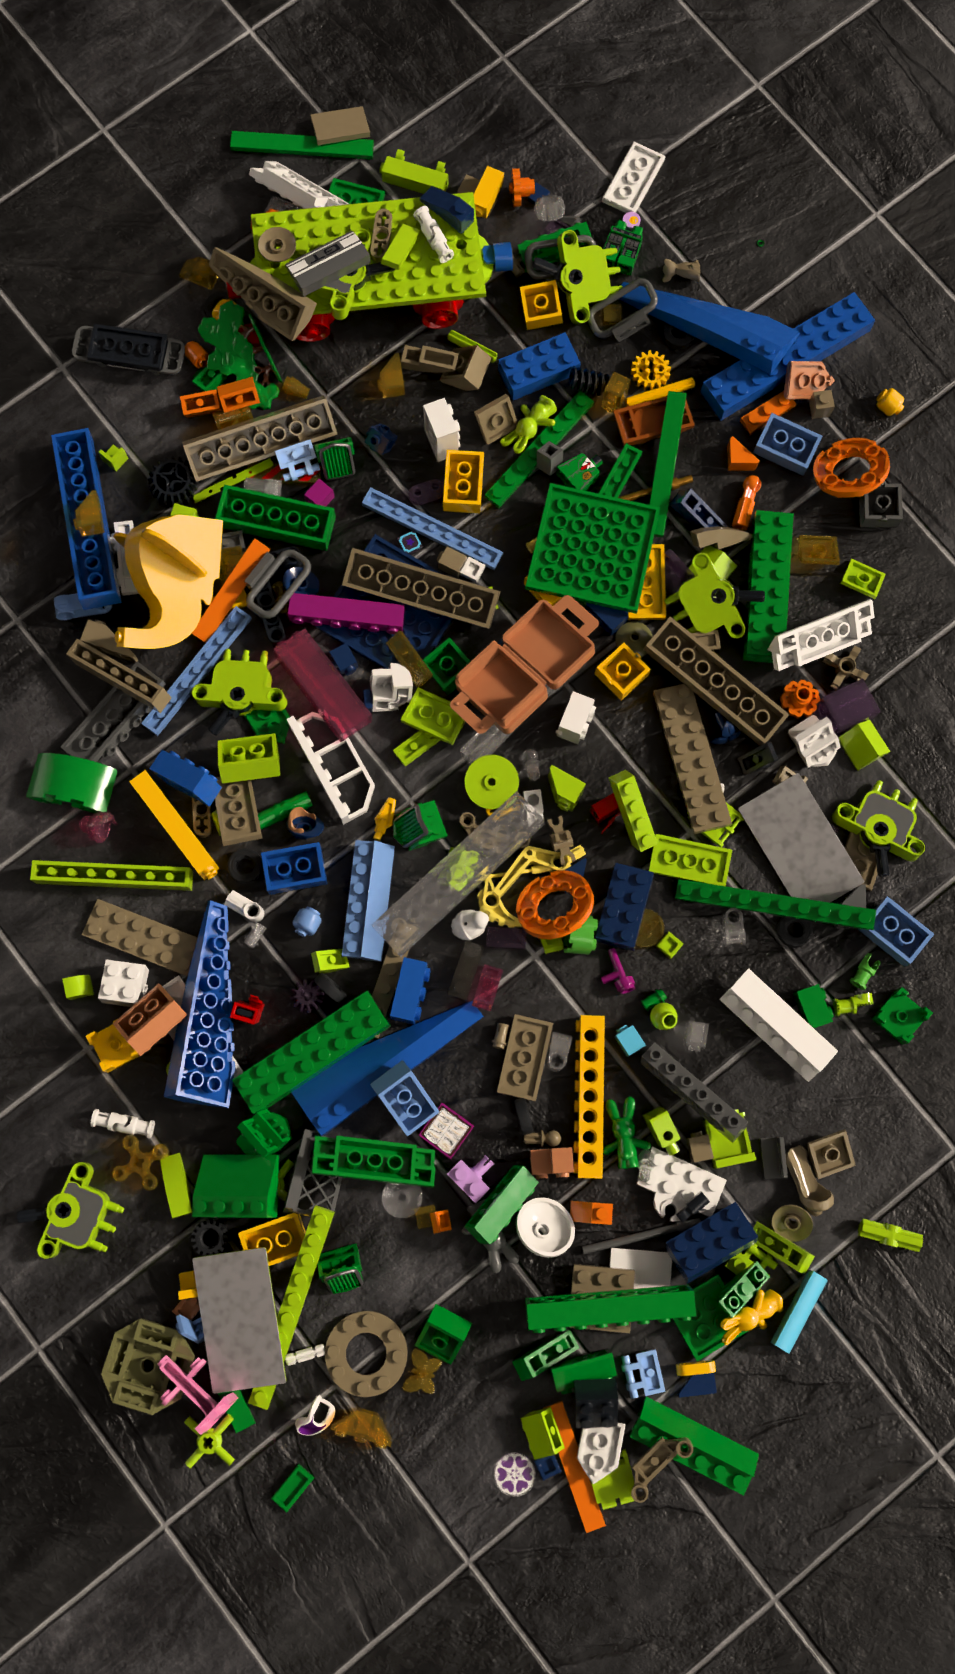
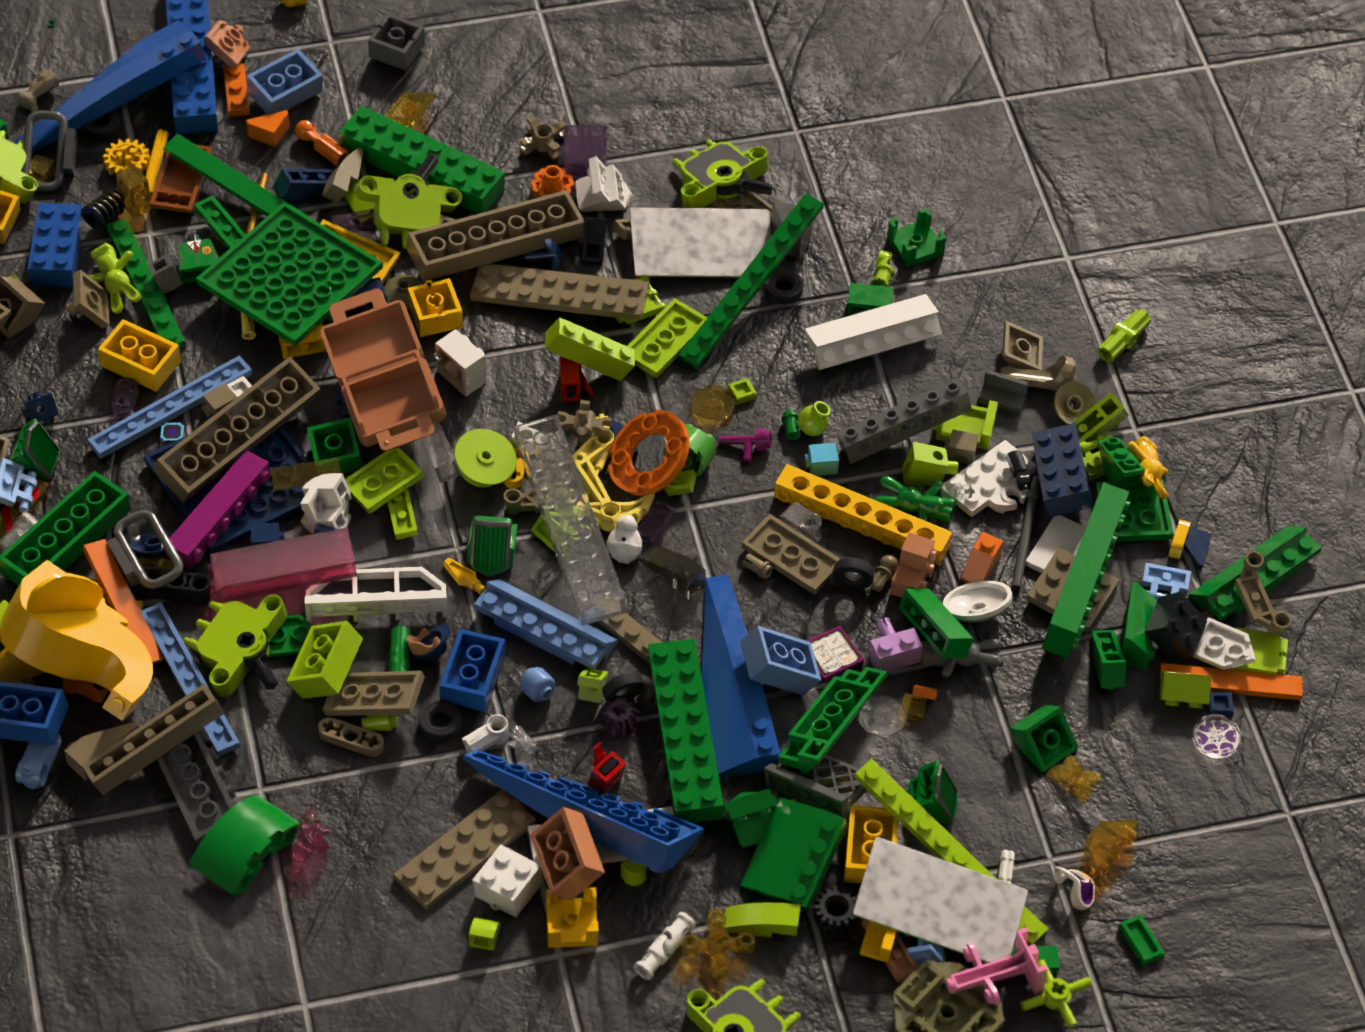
camera: 65 degrees left, 25 degrees down
(111, 875) = (376, 844): lime brick -> none
(175, 825) = (358, 758): yellow brick -> none
(186, 777) = (312, 721): blue brick -> none
(319, 494) = (62, 484): magenta brick -> none
(396, 1353) = (1031, 847): dark tan plate -> none
(410, 991) = (666, 613): blue brick -> none
(441, 428) = (72, 343): white brick -> none
(487, 987) = (699, 553): clear pink slope -> none
(565, 788) = (528, 400): lime slope -> none
(624, 907) = (677, 394): dark blue brick -> none
(695, 1035) = (846, 404): clear brick -> none
(733, 929) = (752, 330): clear piece -> none
(799, 1311) = (1163, 436): medium azure brick -> none
(821, 404) = (260, 43): dark tan brick -> none
(822, 636) = (504, 134): white slope -> none
(851, 447) = (319, 43): orange plate -> none
(863, 578) = (460, 88): lime slope -> none
(863, 744) = (631, 159): lime slope -> none
(864, 972) = (857, 248): bright green piece -> none
(898, 932) = (843, 205): medium blue brick -> none

